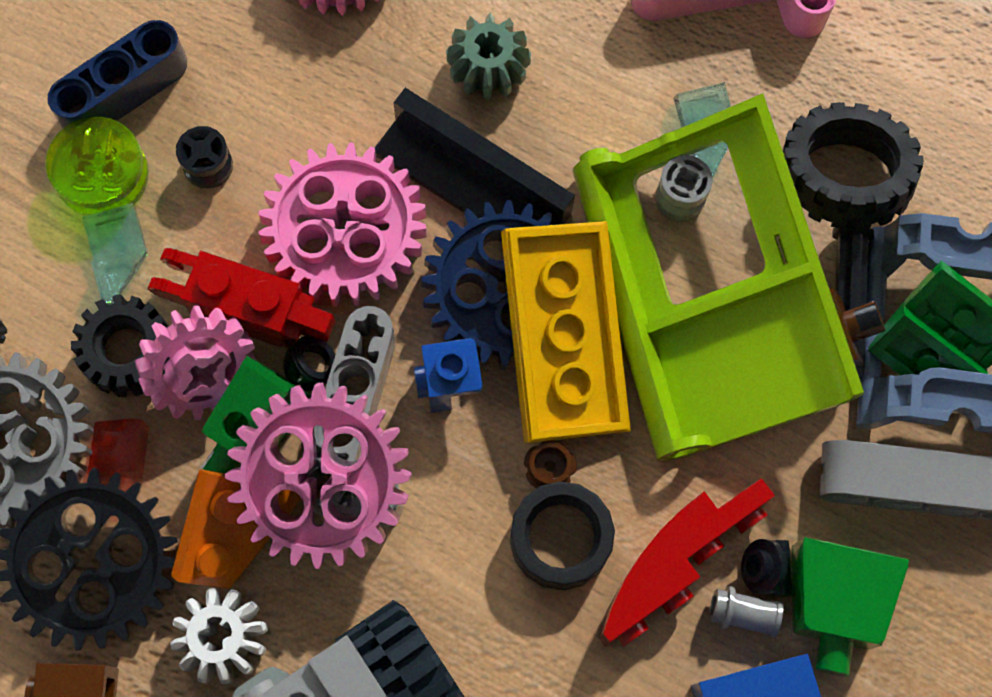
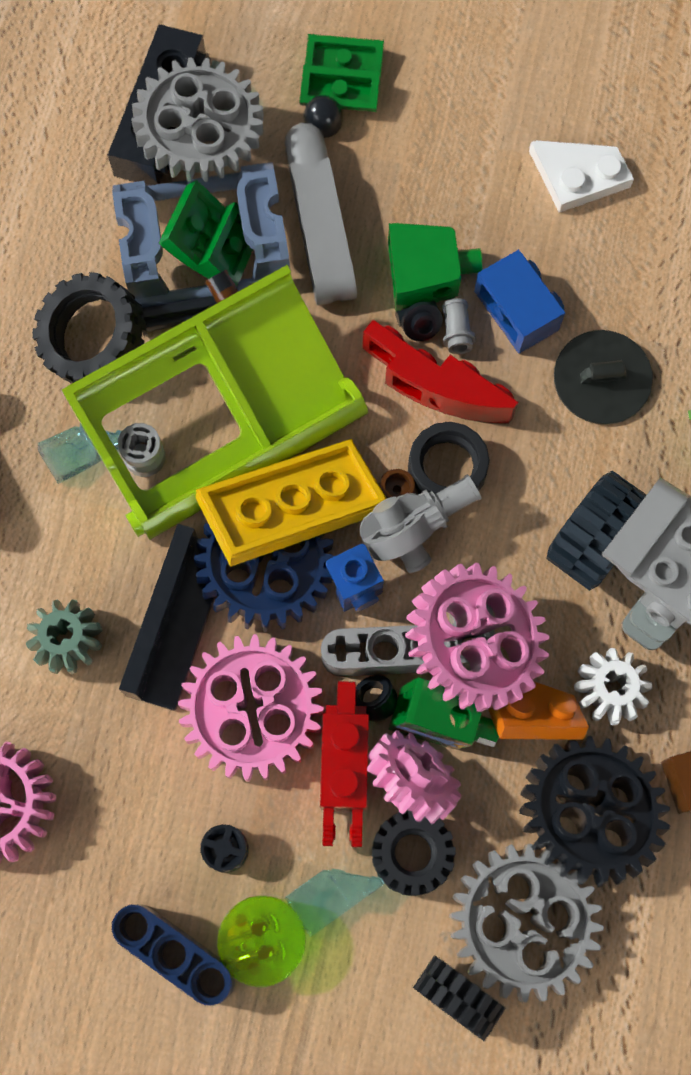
camera: 105 degrees left, 0 degrees up
(119, 447) = (497, 826): clear red slope -> none
(493, 449) = (405, 522): none -> light grey pin

